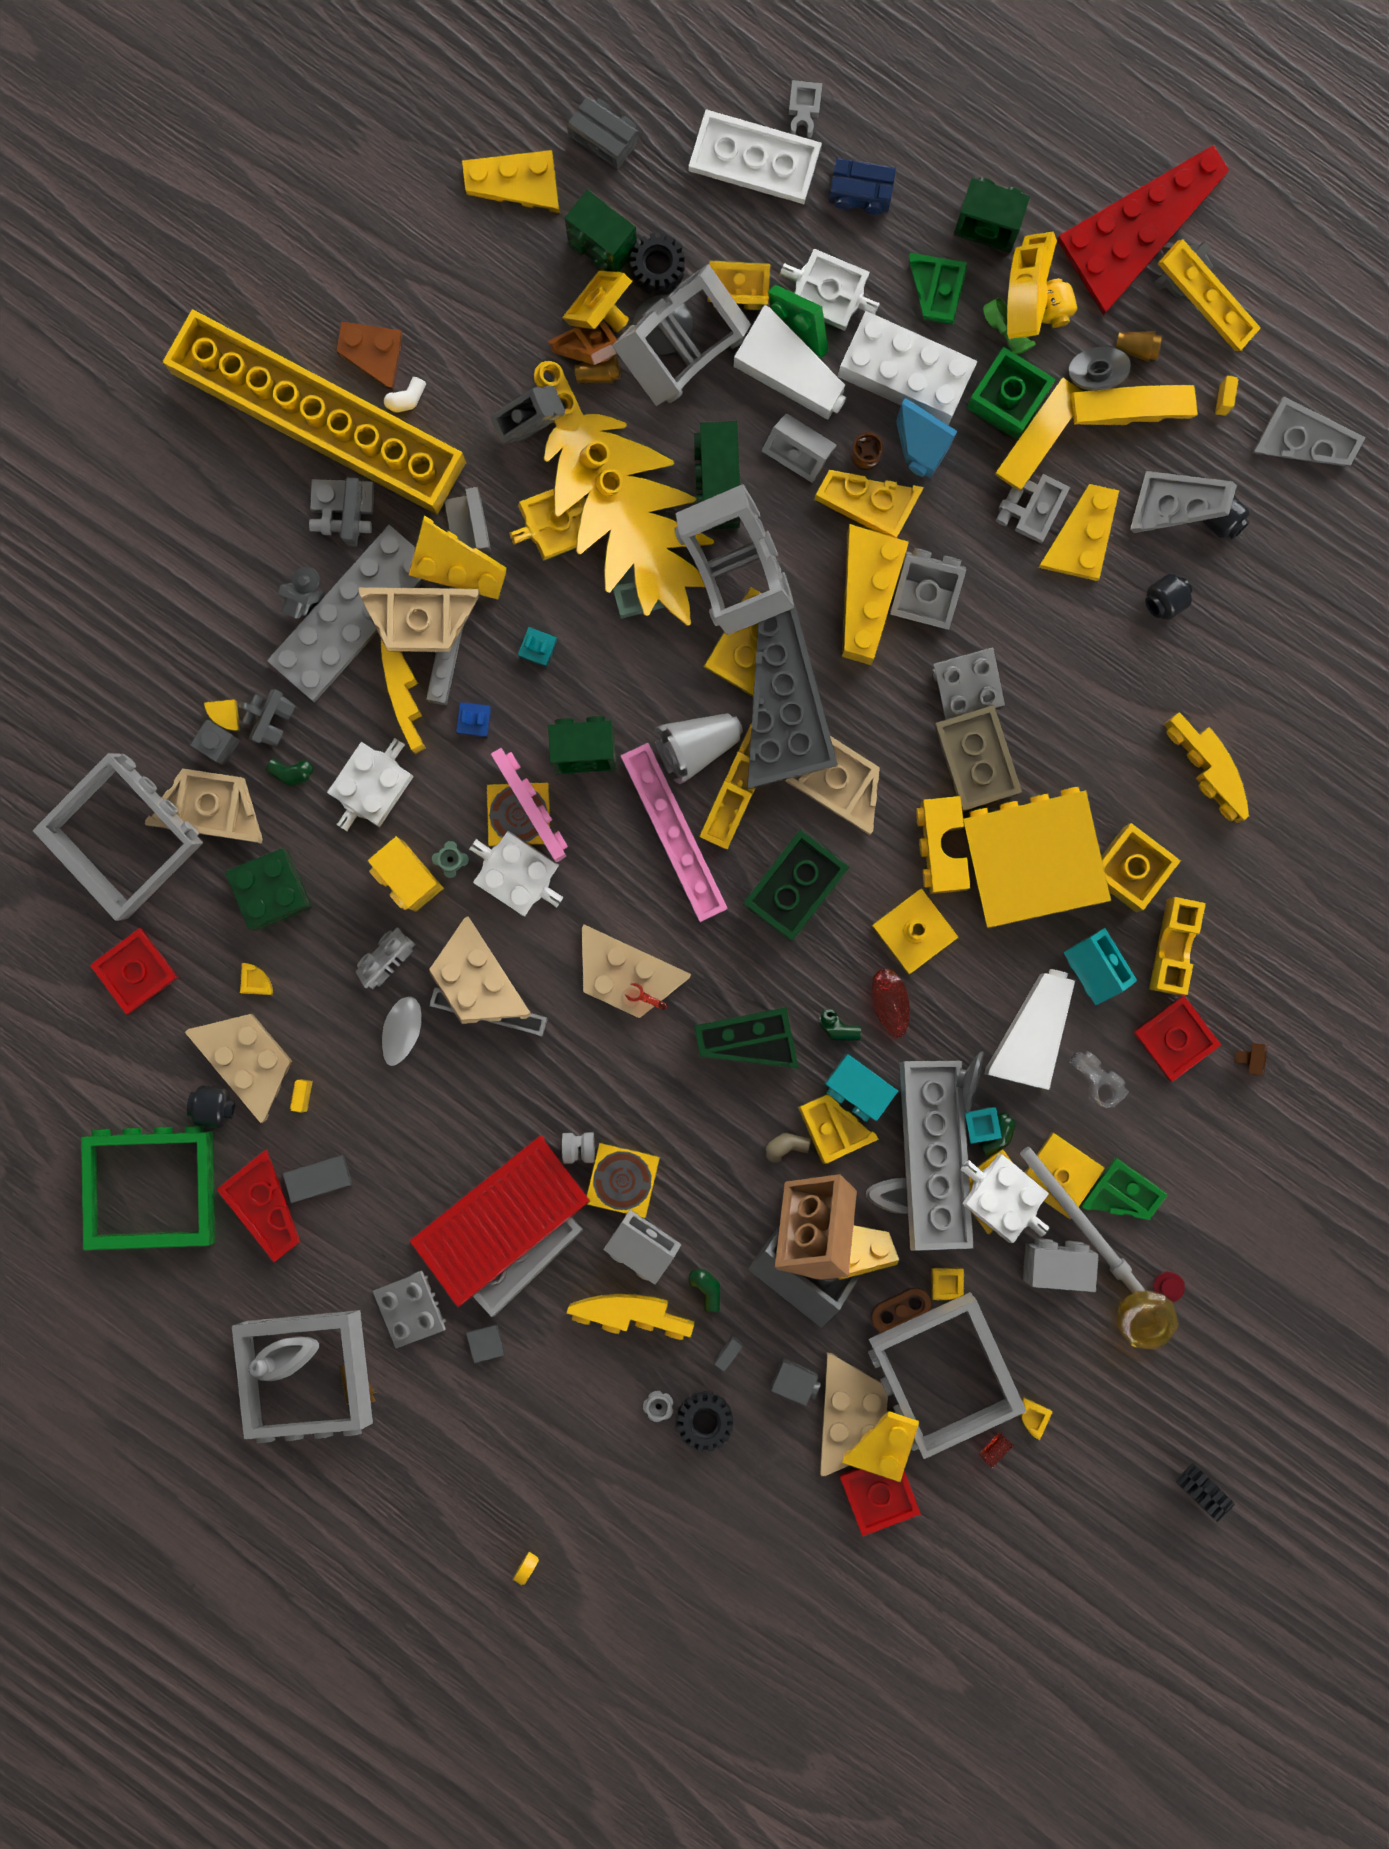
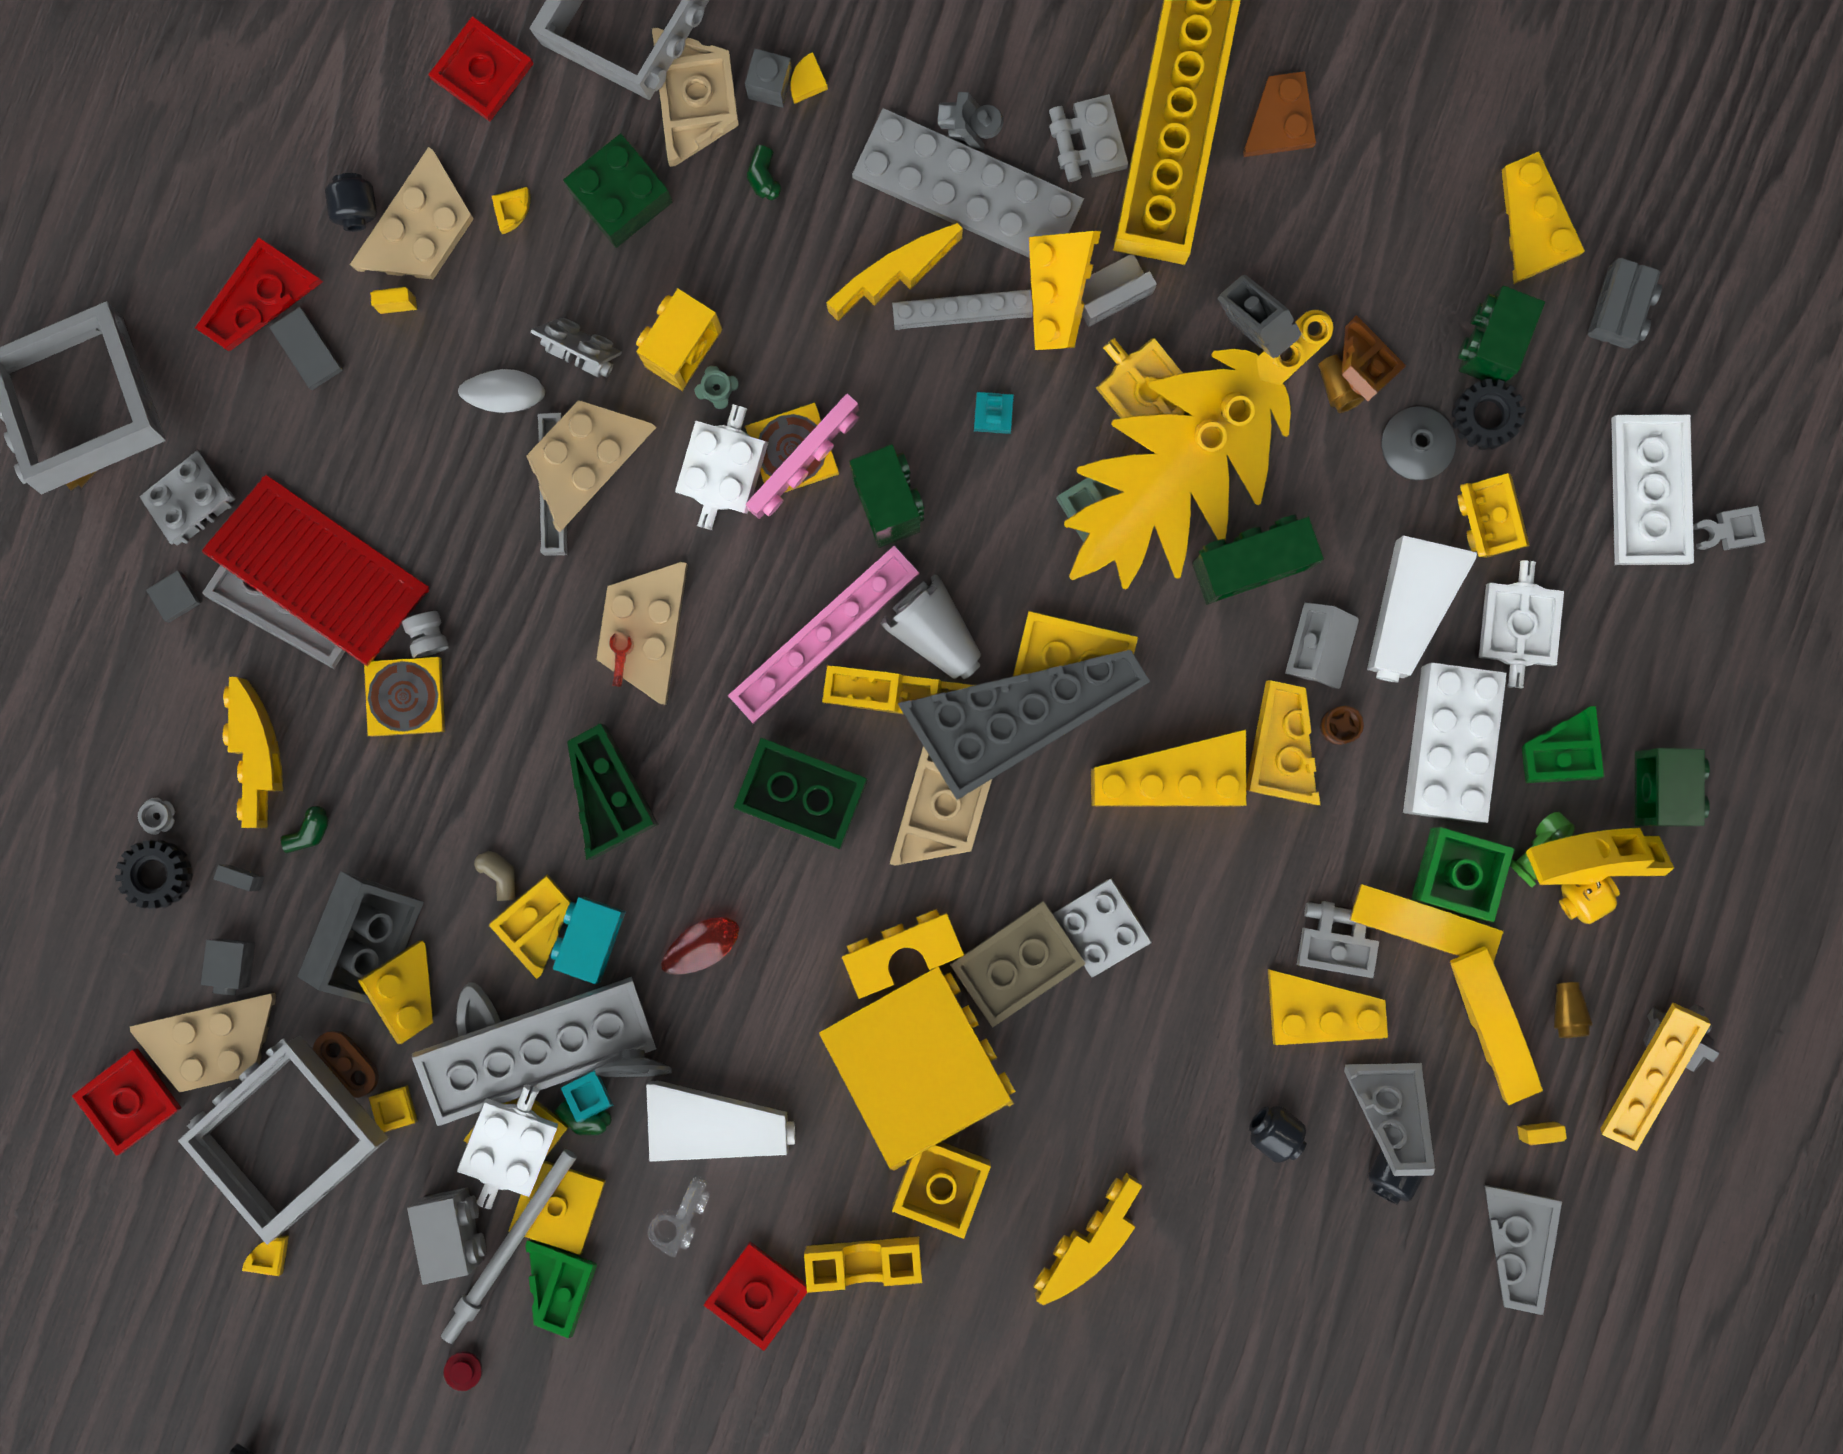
camera: 75 degrees right, 0 degrees up
(131, 1136) = (208, 241): green window -> none
(275, 705) = (799, 128): dark grey hips -> none
(283, 1358) = (82, 368): light grey arm -> none
(351, 511) = (1082, 148): dark grey tile -> none
(370, 784) = (775, 269): white plate -> none
(407, 399) = (1236, 173): white arm -> none
(419, 616) = (982, 263): tan wing -> none
(473, 720) = (886, 365): blue tile -> none
(599, 301) = (1419, 359): yellow tile -> none
(642, 1247) = (331, 742): light grey brick -> none
(646, 364) = (1359, 433): light grey window -> none
(717, 511) = (1210, 570): light grey window -> none
(802, 317) = (1475, 600): green wing -> none
(816, 1227) = (408, 936): medium nougat slope -> none
(836, 1029) = (651, 891): dark green arm -> none
(862, 186) = (1657, 625): dark blue brick -> none
(884, 1447) = (178, 1090): yellow wing -> none
(915, 931) = (792, 950): yellow tile -> none
(923, 438) = (1375, 787): dark azure slope -> none
(928, 588) = (1200, 846): light grey plate -> none
(996, 1450) = (215, 1222): clear red tile -> none
(1099, 368) = (1526, 971): dark grey dish -> none
(1100, 967) = (812, 1177): teal brick -> none
(1127, 235) = (1699, 958): red wing -> none
(1147, 1319) = (416, 1356): clear yellow hat -> none
(1255, 1058) = (759, 1396): reddish brown tile -> none

